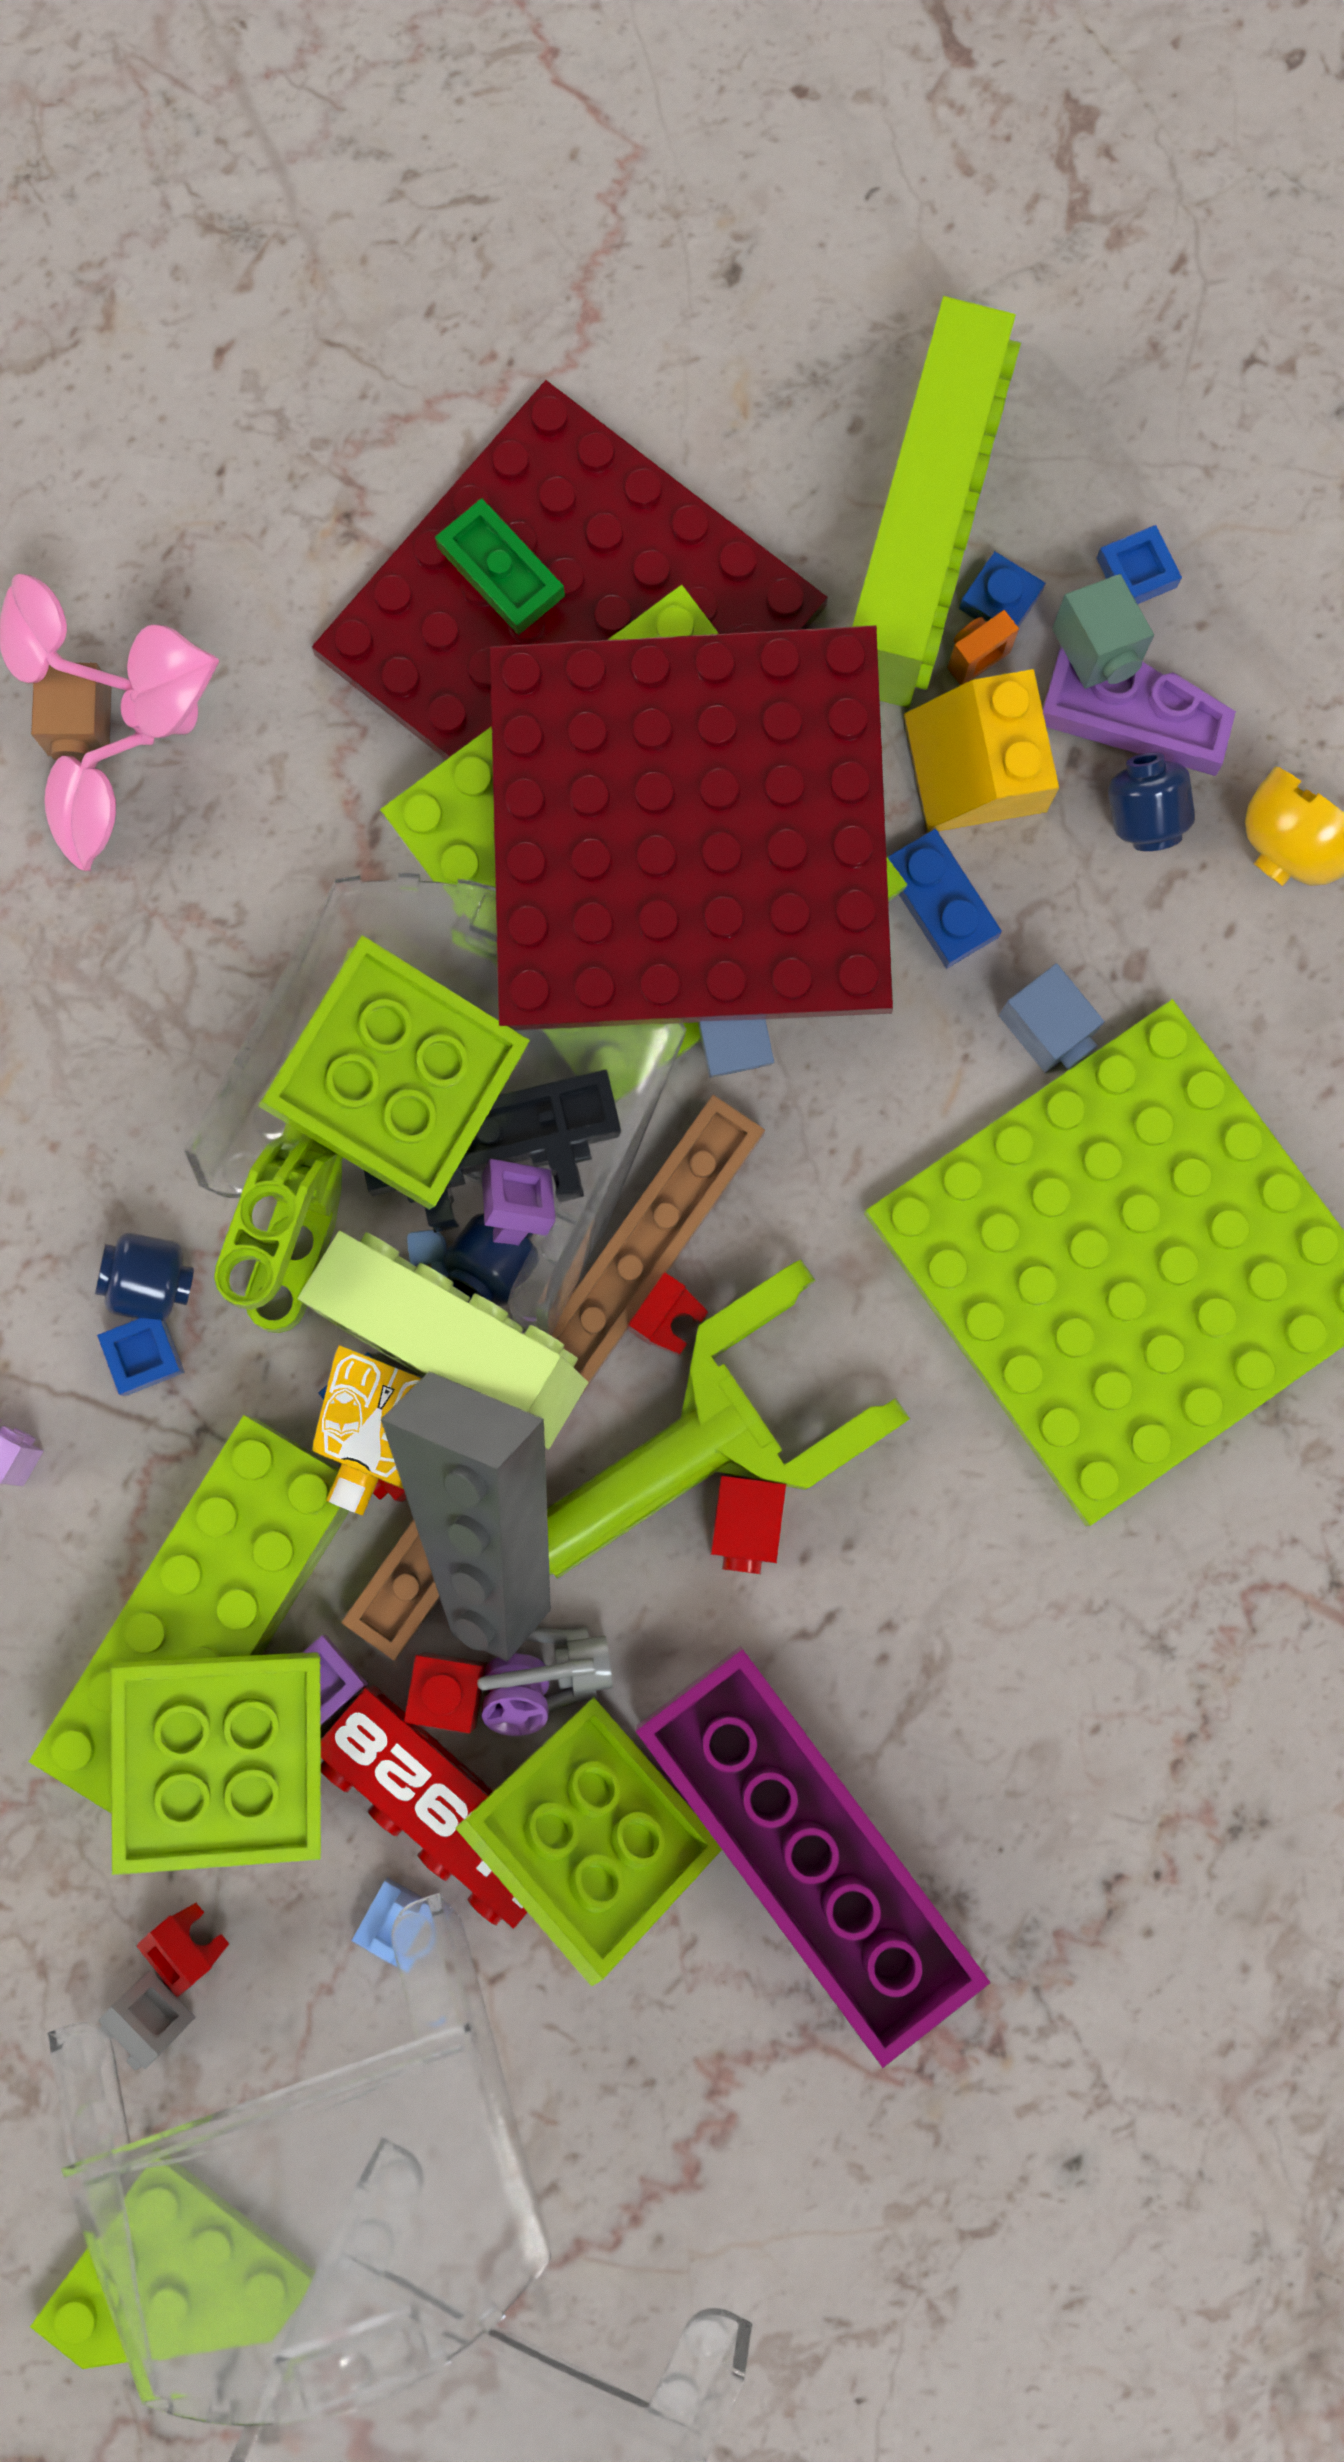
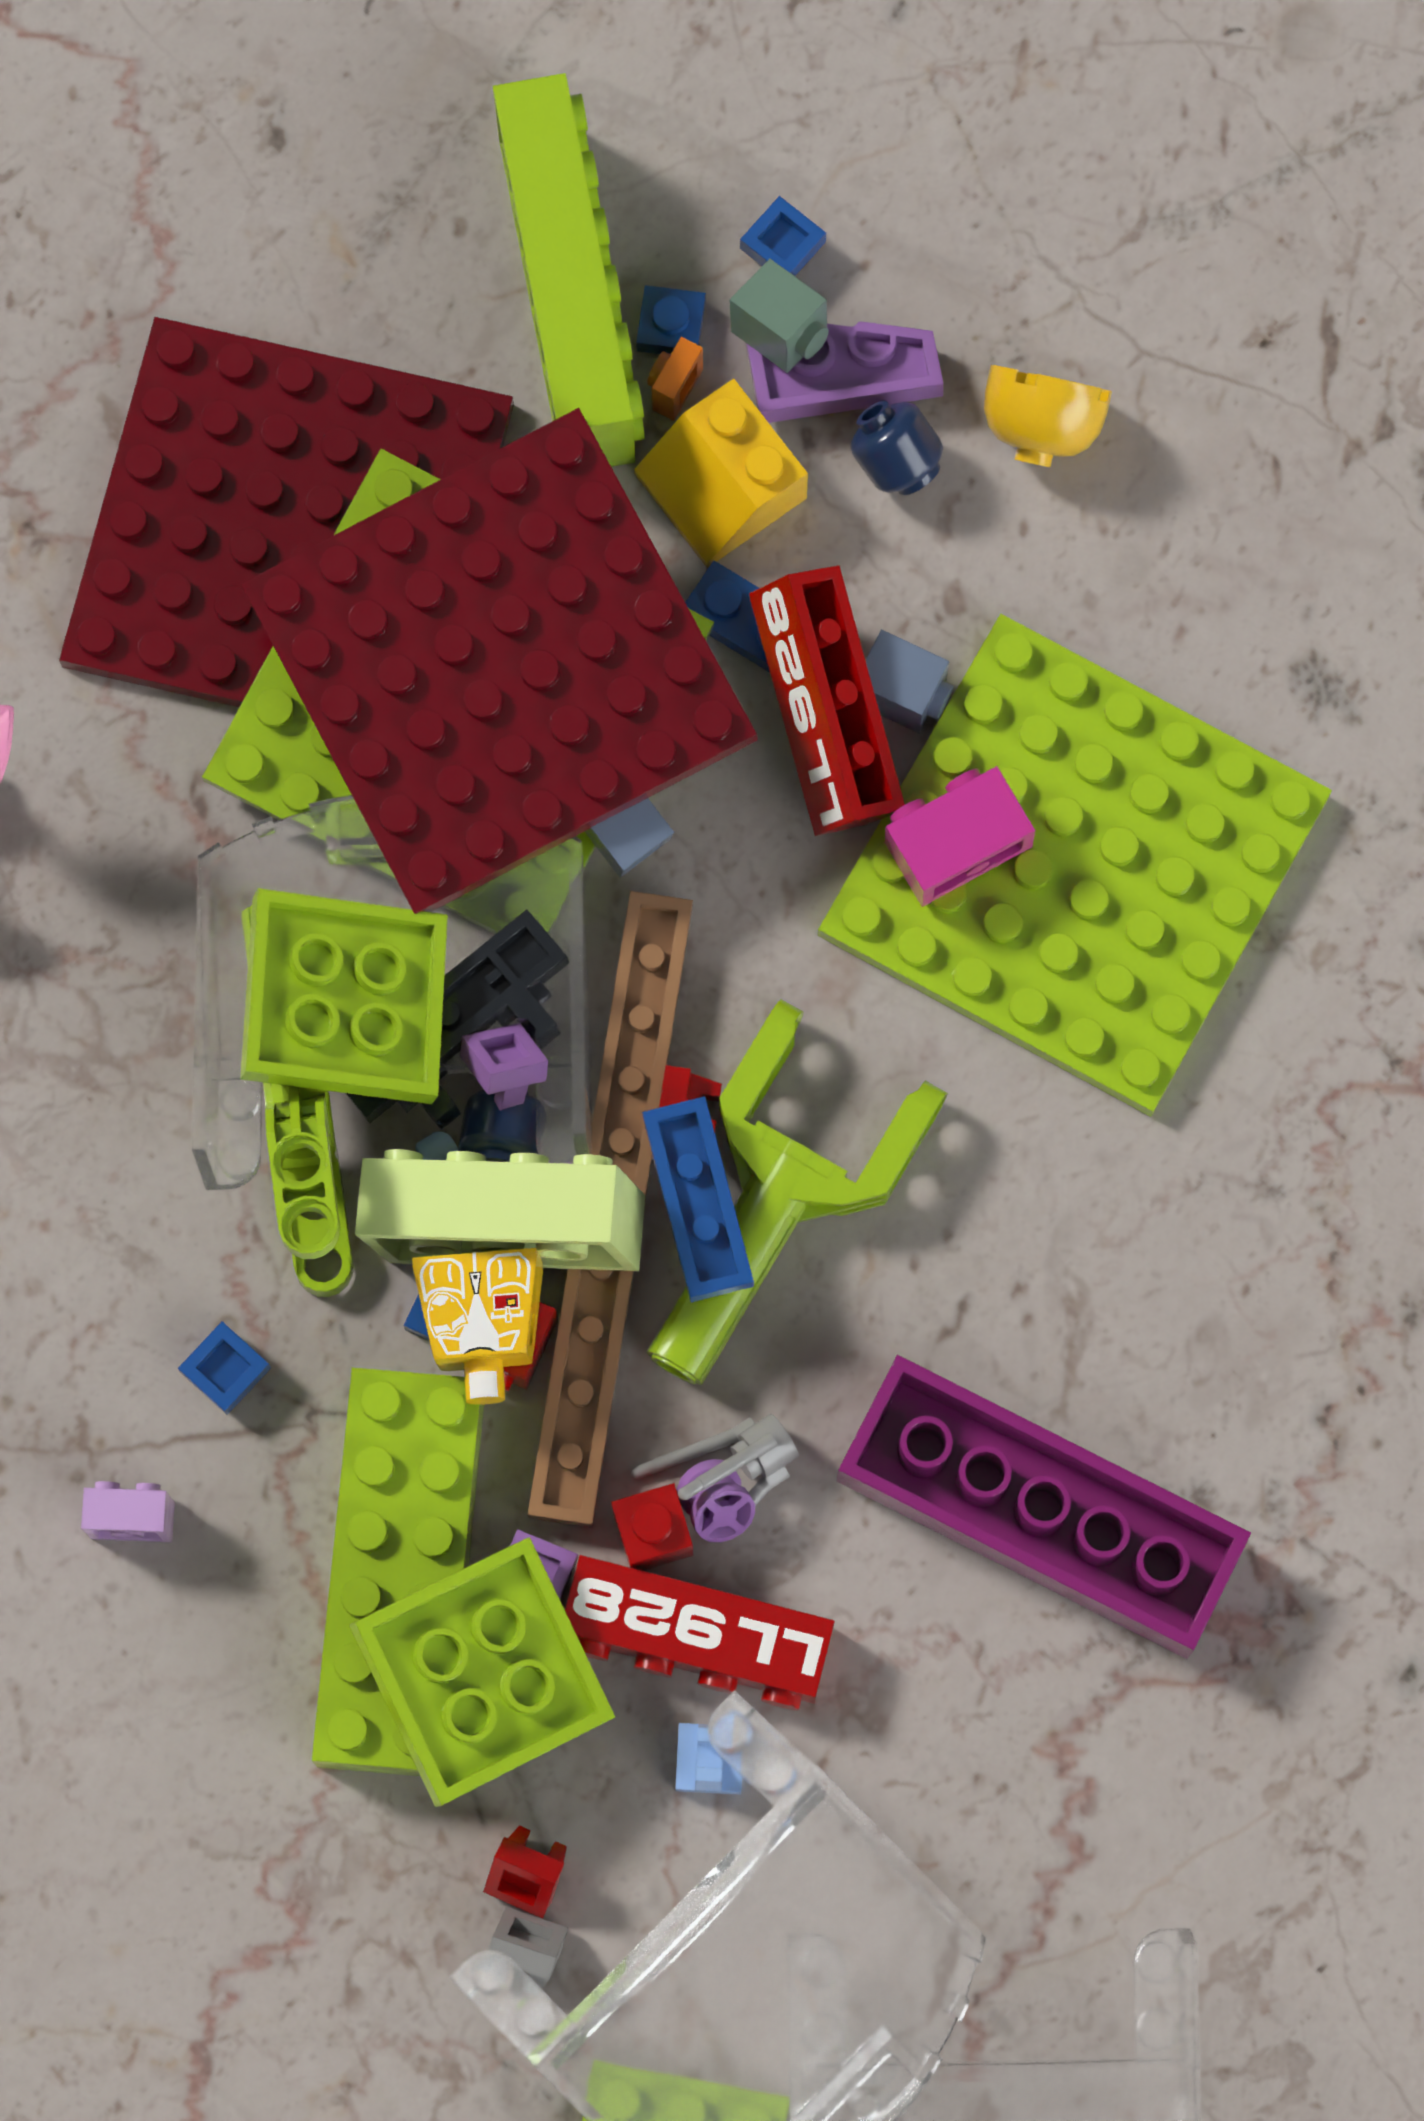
camera: 25 degrees left, 5 degrees down
(143, 1277) = (193, 1297): dark blue head -> none
(478, 1506) = (608, 1338): dark grey wedge -> none
(500, 566) = (203, 507): green plate -> none
(590, 1840) = (845, 1585): lime plate -> none
(630, 1413) = (697, 1199): none -> blue plate
(747, 1523) = (847, 1253): red brick -> none
(975, 1004) = (826, 700): none -> red brick
(1036, 1186) = (958, 834): none -> dark pink brick

